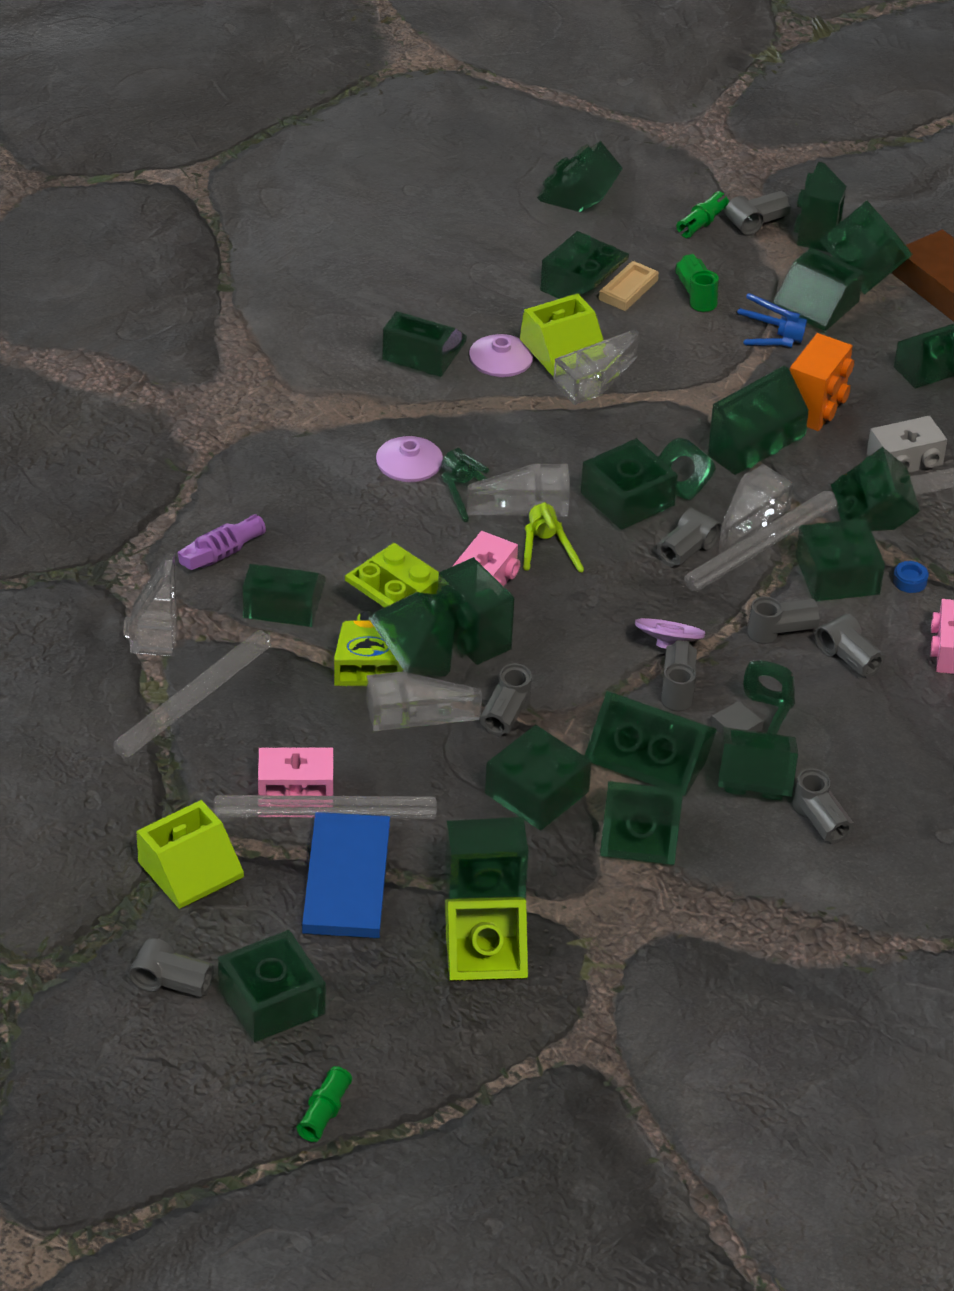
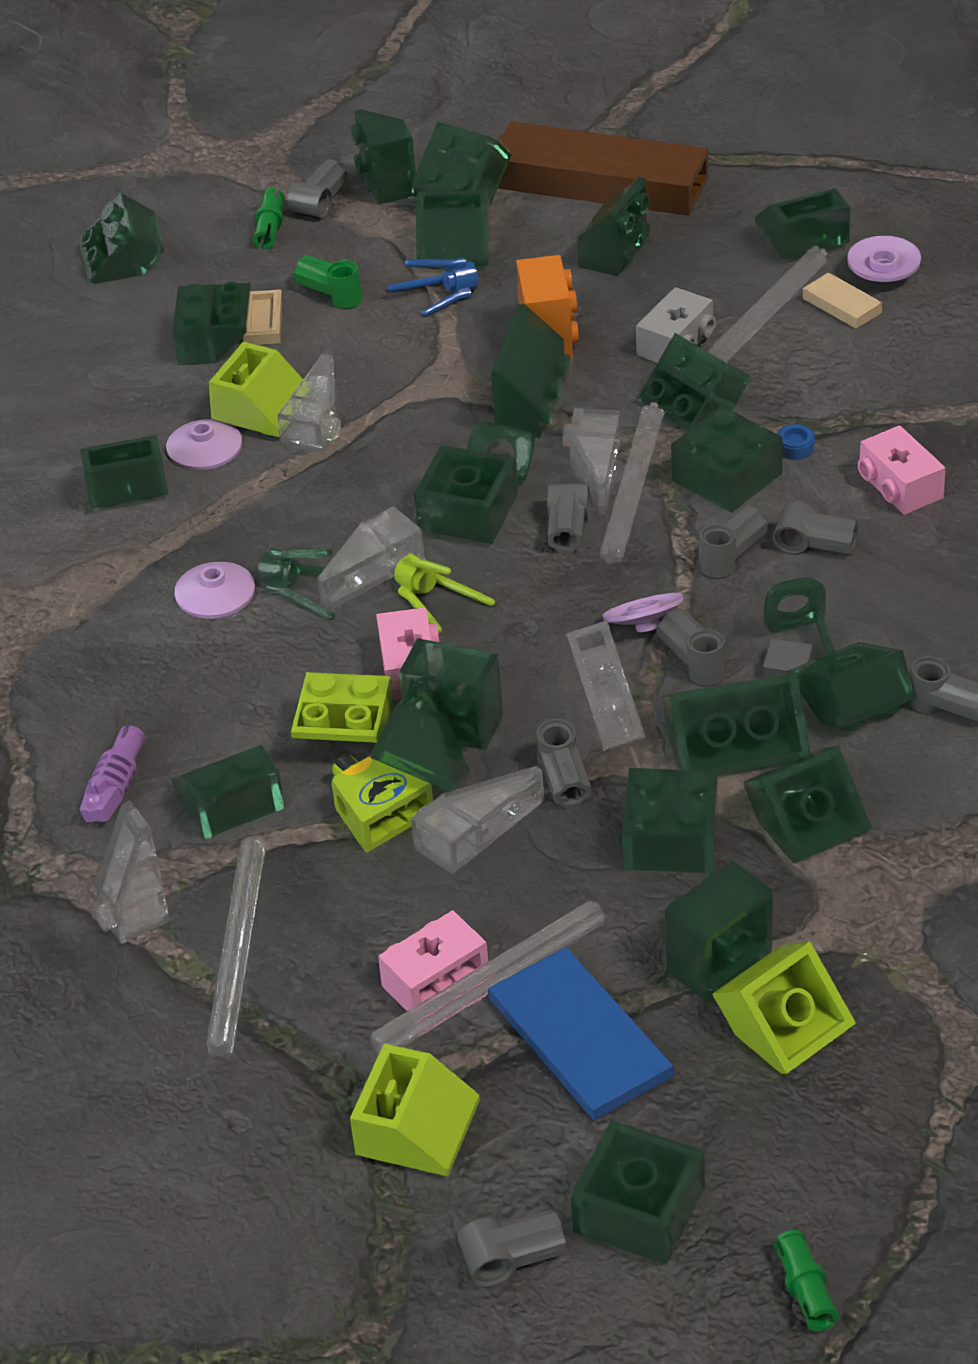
camera: 30 degrees left, 0 degrees up
(589, 664) = (605, 686): none -> clear slope

